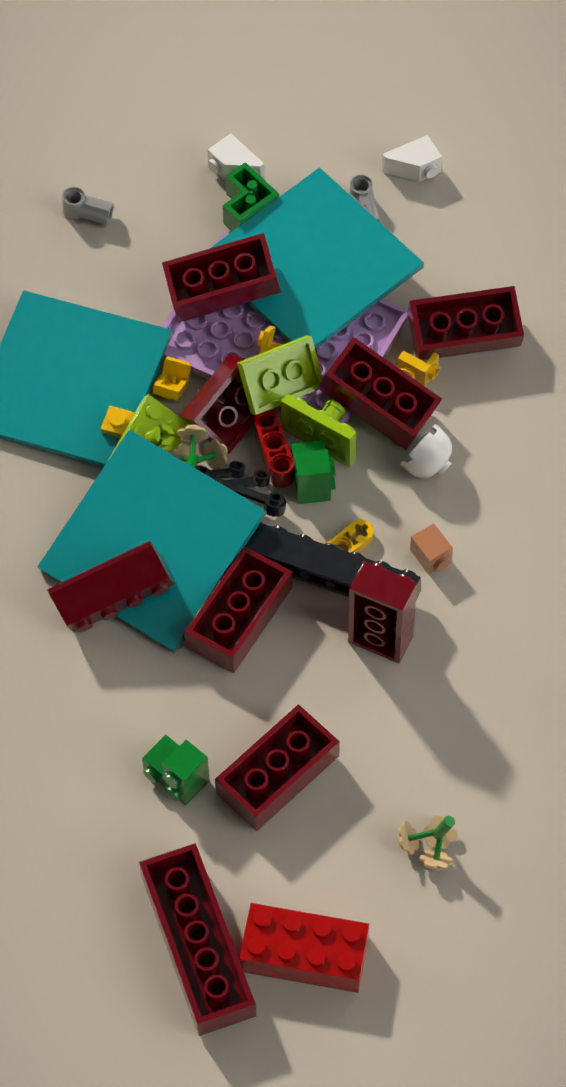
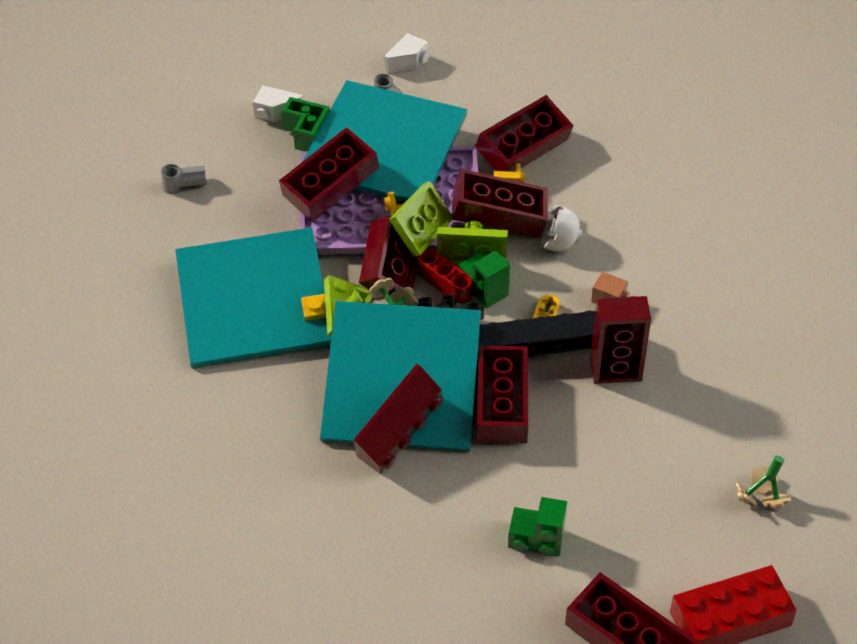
camera: 30 degrees left, 10 degrees down
(173, 379) = (333, 261): yellow bracket -> none
(277, 767) = (614, 491): dark red brick -> none

